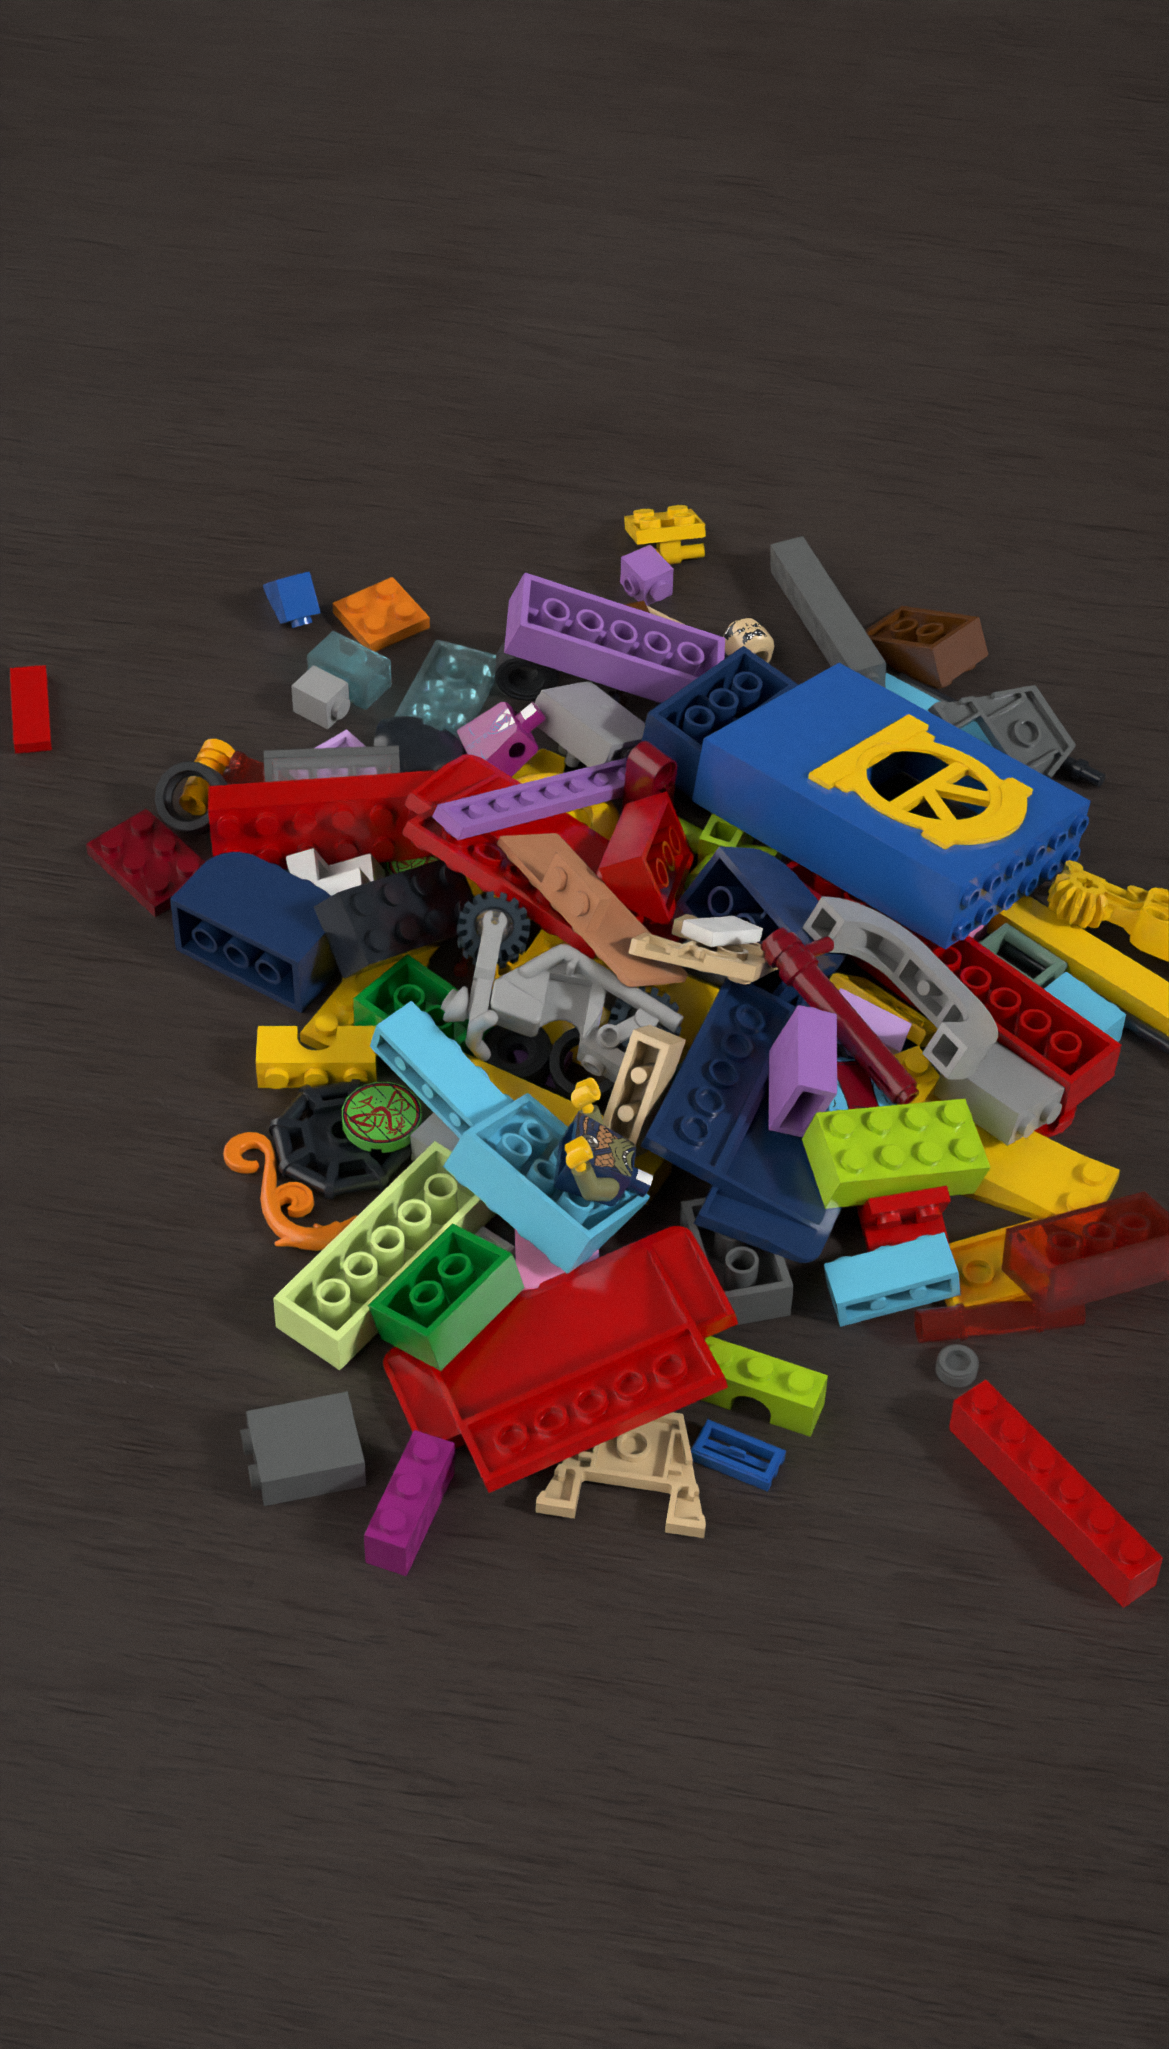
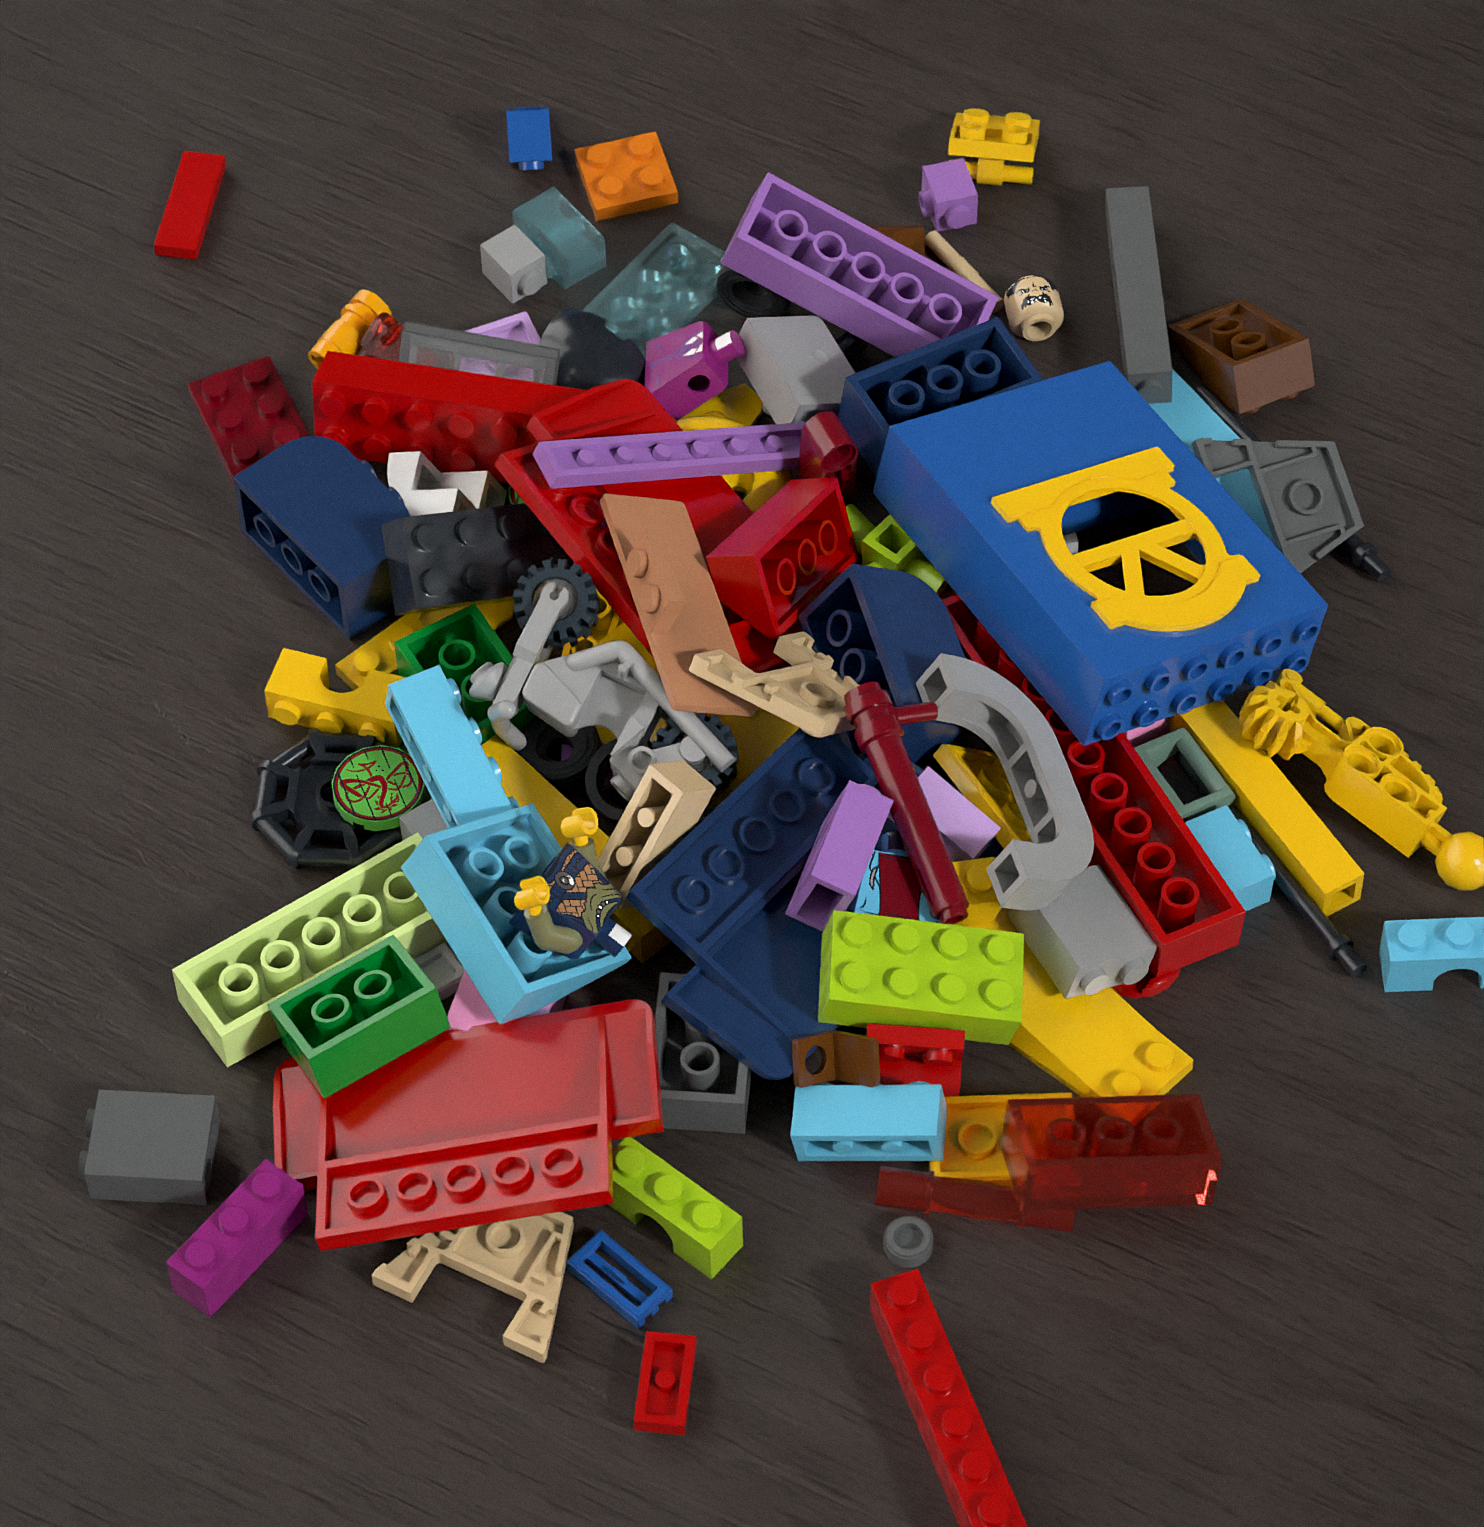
camera: 20 degrees right, 5 degrees up
(165, 791) = (295, 336): black tyre -> none
(274, 1197) = (235, 849): orange plant -> none
(721, 931) = (817, 665): white tile -> none
(813, 1526) = (665, 1383): none -> red plate
(855, 1232) = (844, 1058): none -> reddish brown bracket

